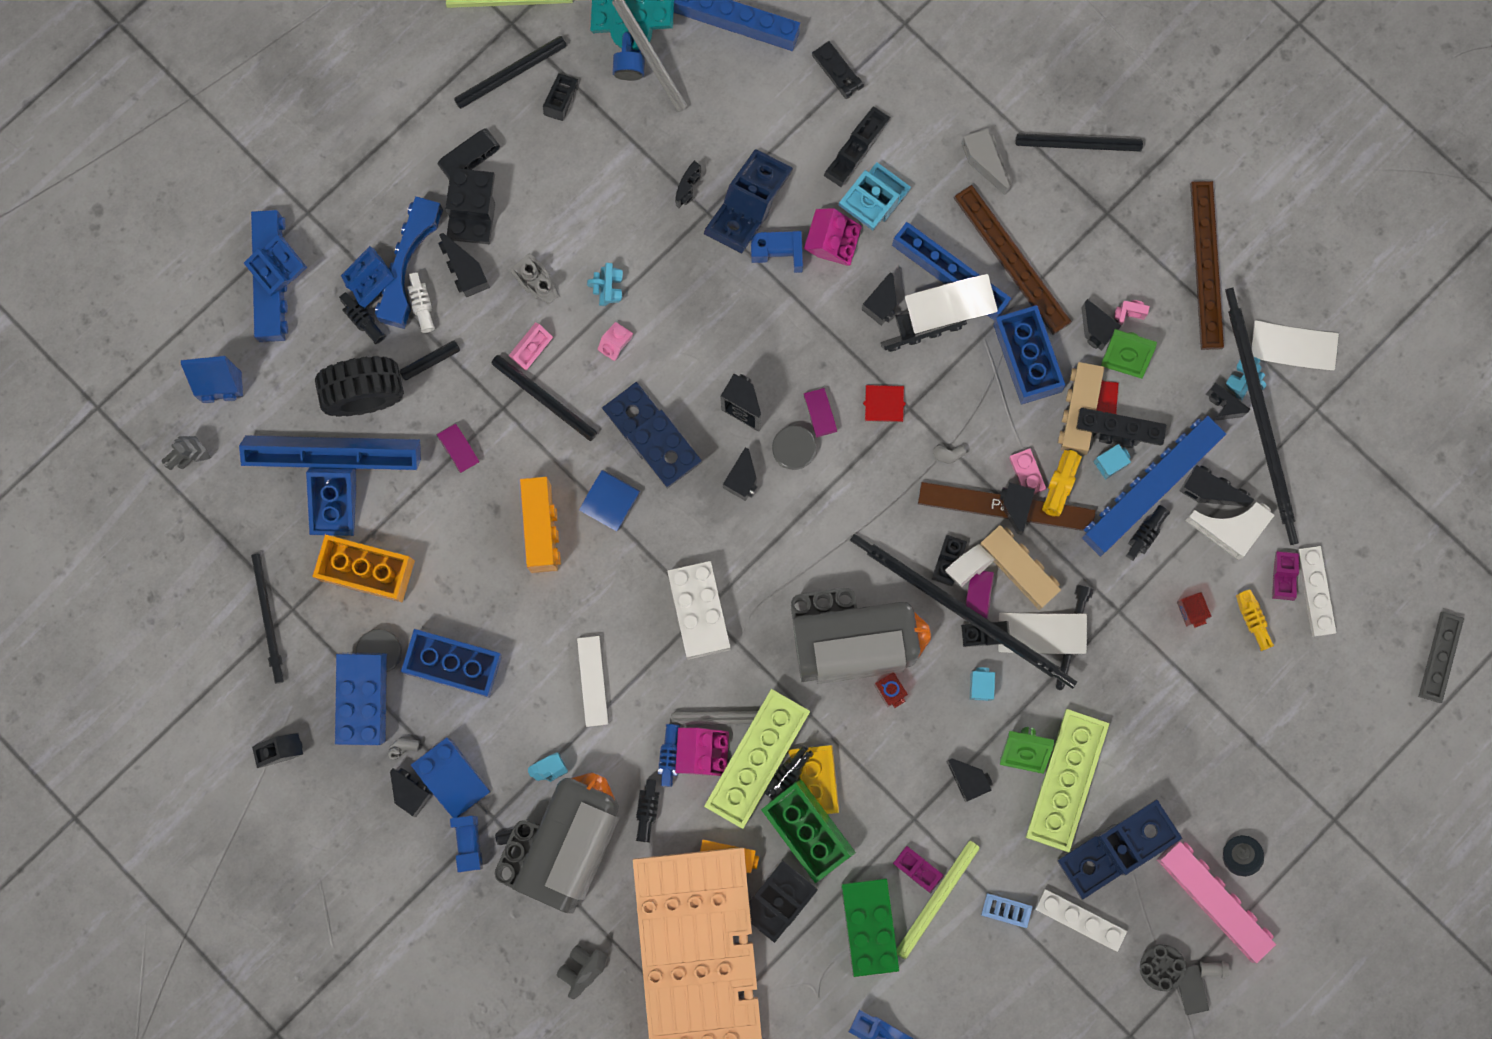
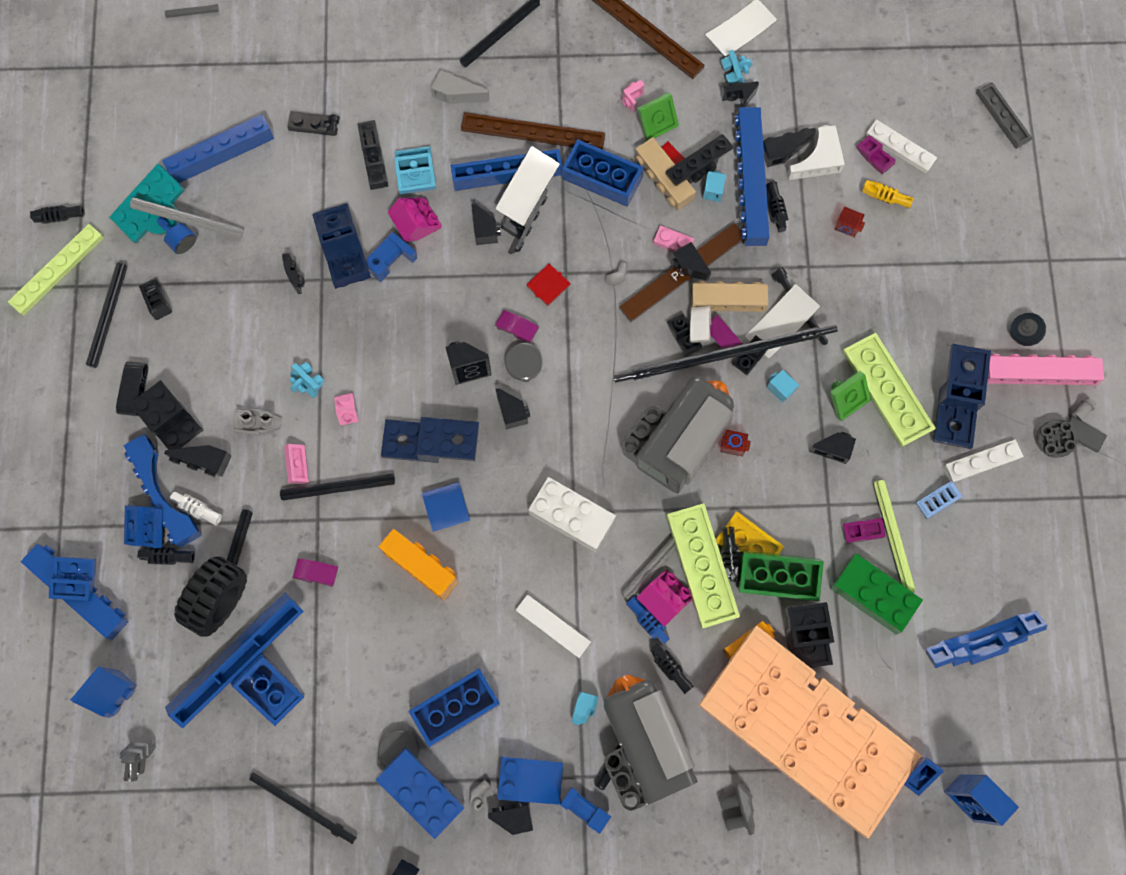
camera: 50 degrees left, 5 degrees down
(363, 568) = (333, 709): light orange brick -> none
(1061, 483) = (700, 225): yellow piece -> none
(1097, 325) = (622, 119): black slope -> none
(1261, 416) = (768, 78): black axle -> none

